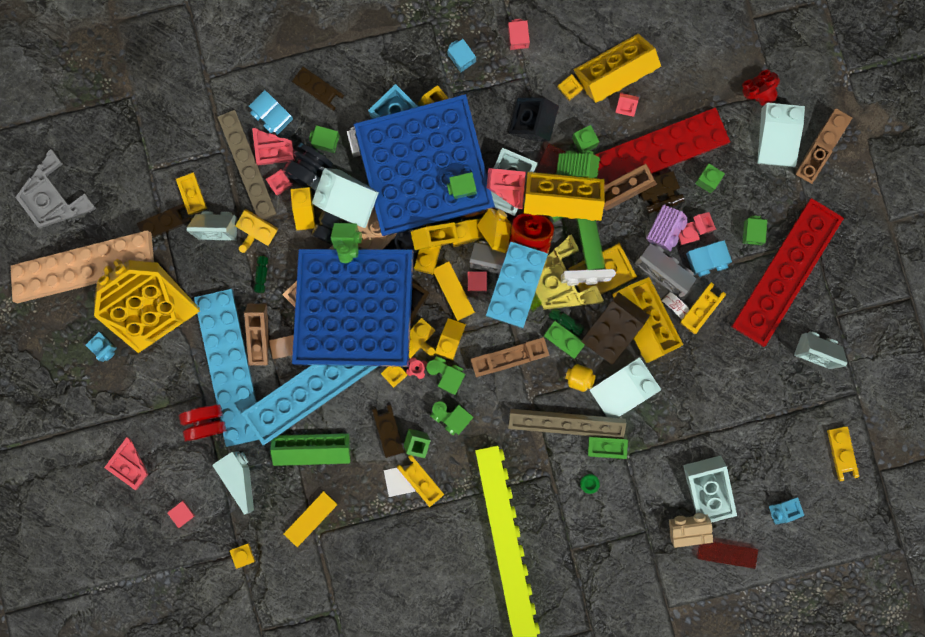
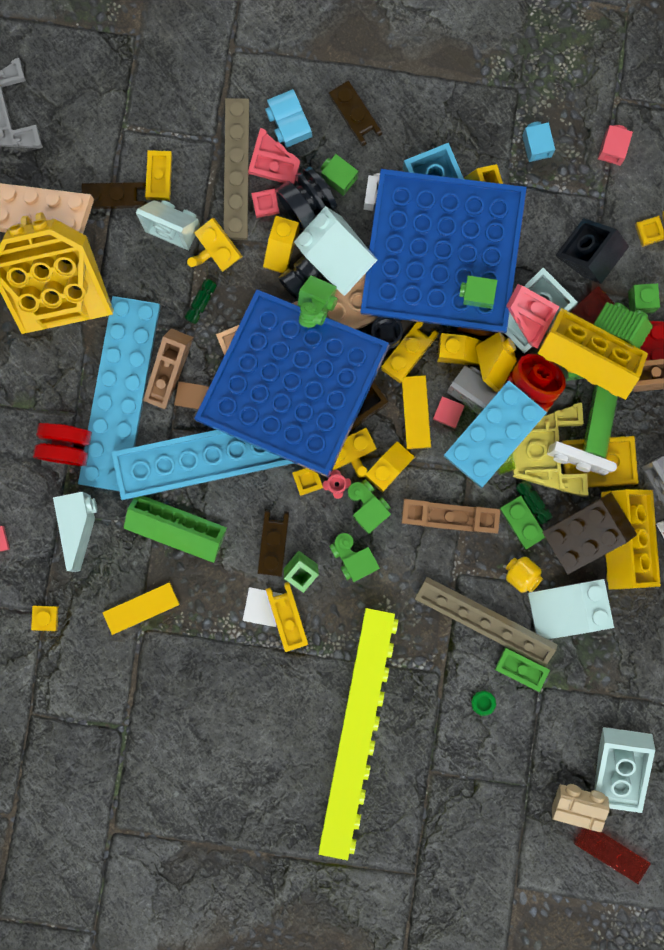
camera: 20 degrees right, 0 degrees up
(434, 236) = (421, 338): yellow brick -> none

